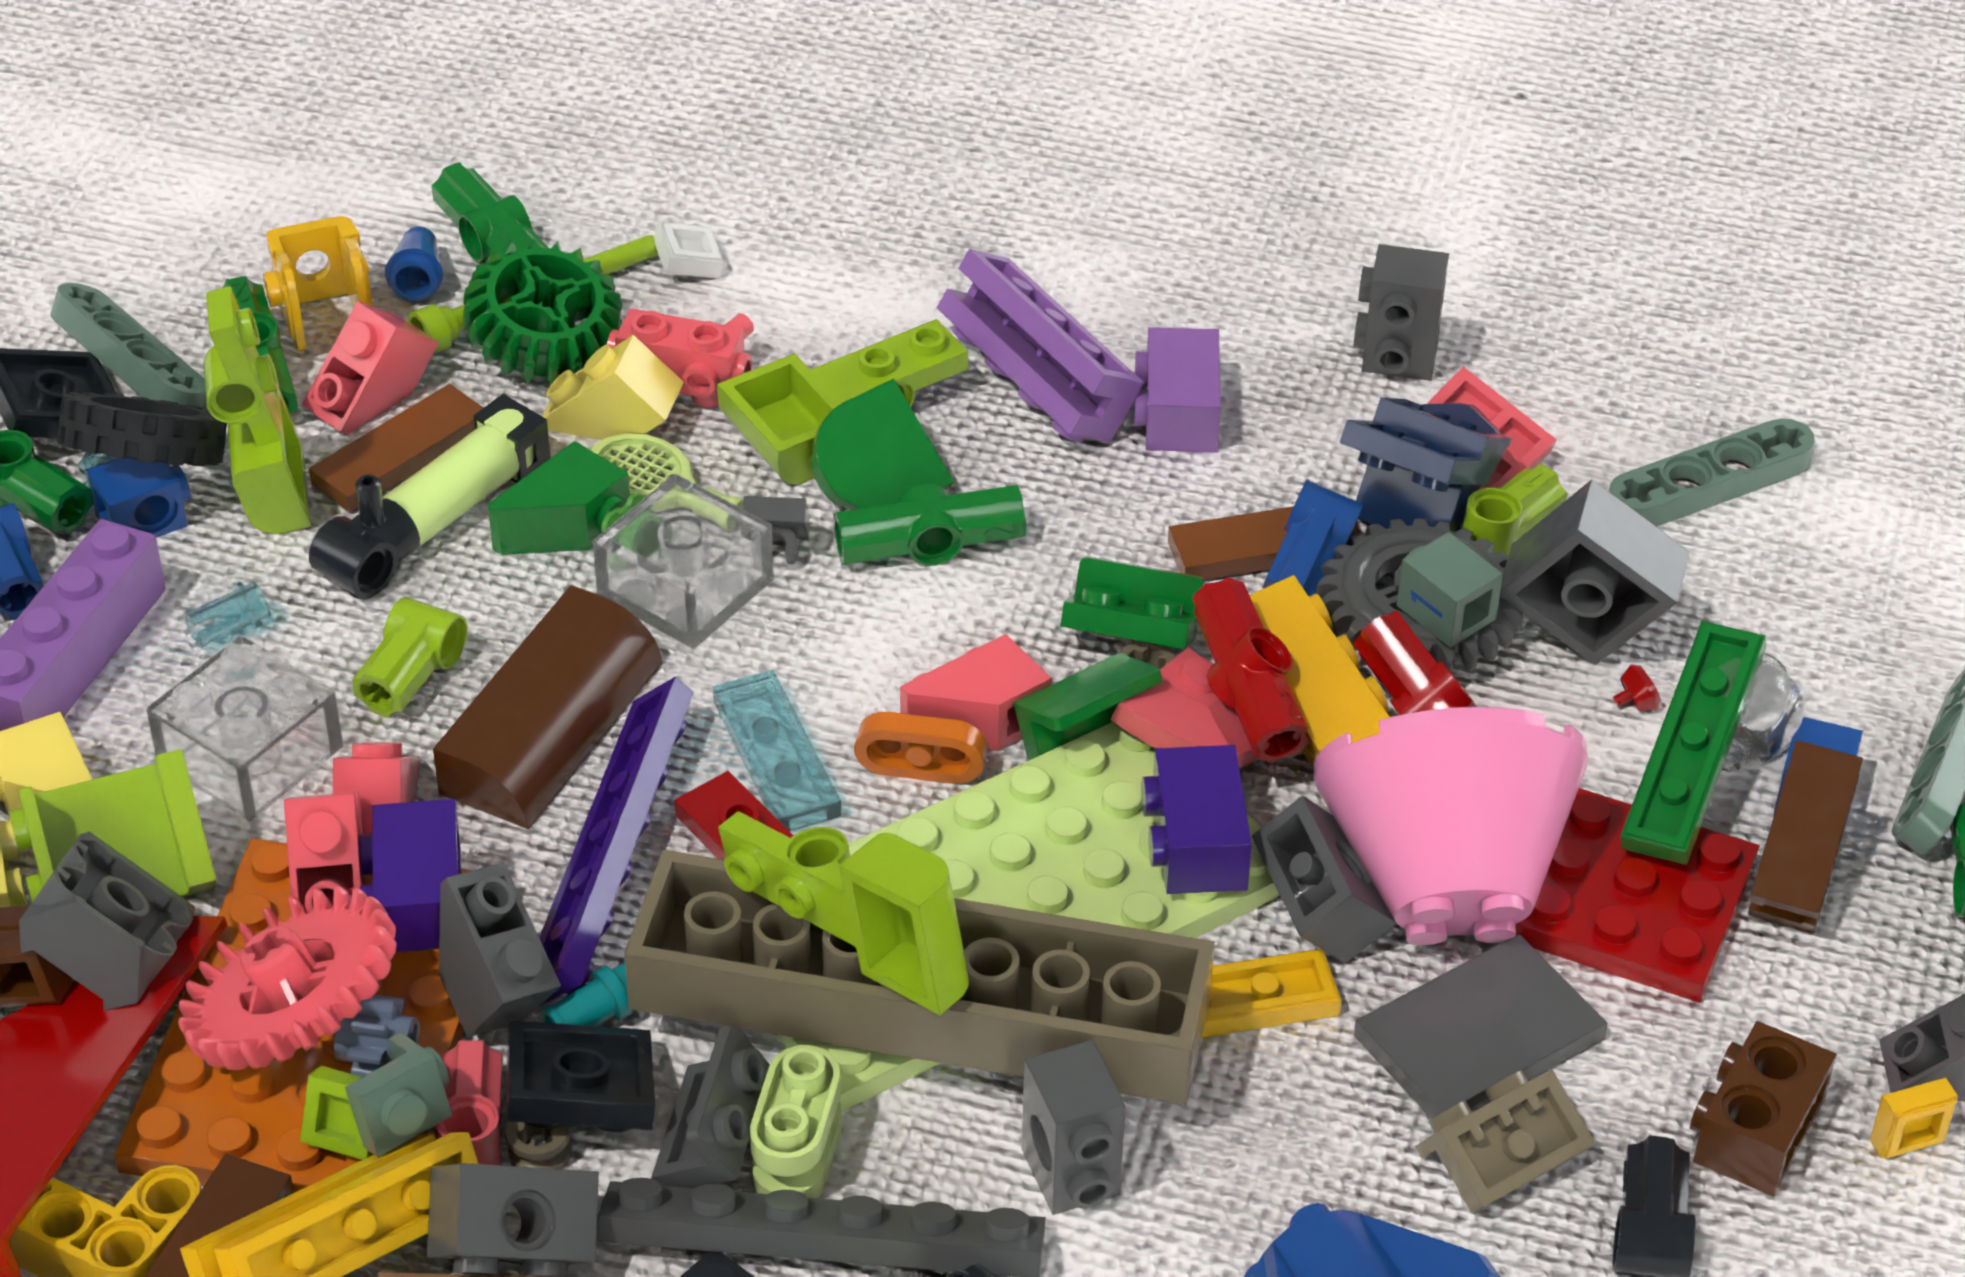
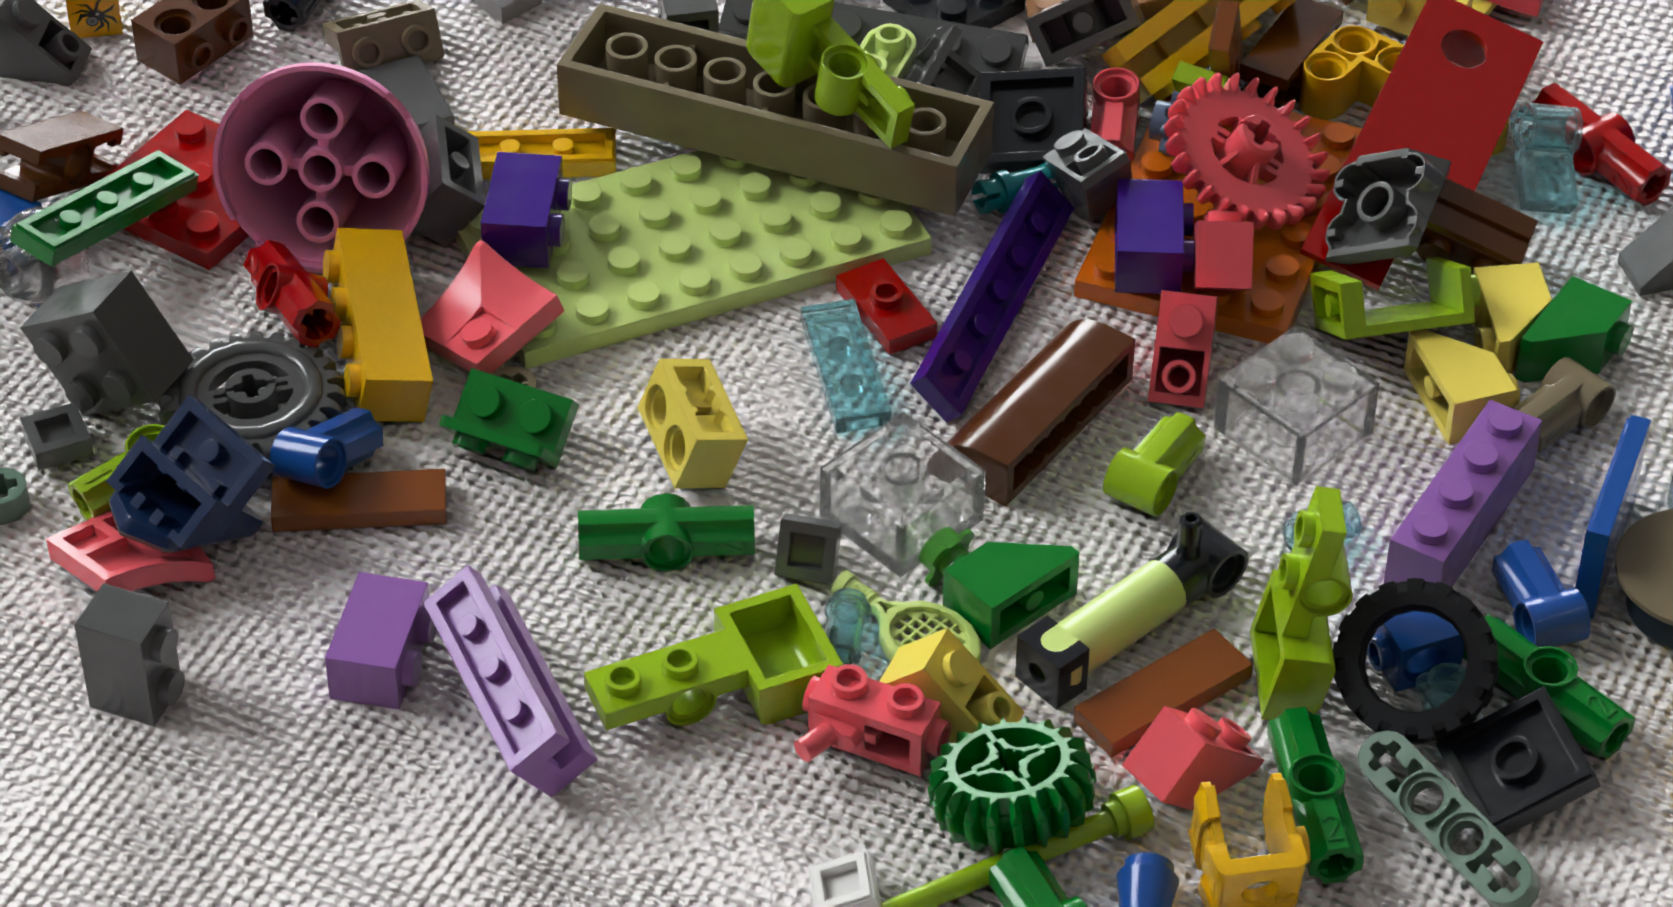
camera: 170 degrees left, 0 degrees up
(309, 1097) = (1226, 40): none -> dark orange tile
(400, 1096) = (1156, 63): sand green bracket -> none
(725, 463) = (847, 615): none -> clear light blue pin
(874, 451) = (700, 586): green tile -> none
(921, 747) = (725, 333): orange plate -> none
(924, 603) = (692, 423): none -> light yellow brick
(978, 690) = (636, 351): coral slope -> none
(1081, 702) = (577, 324): green panel -> none
(1250, 670) = (439, 303): red piece -> none
(1449, 589) = (241, 334): sand green brick -> none

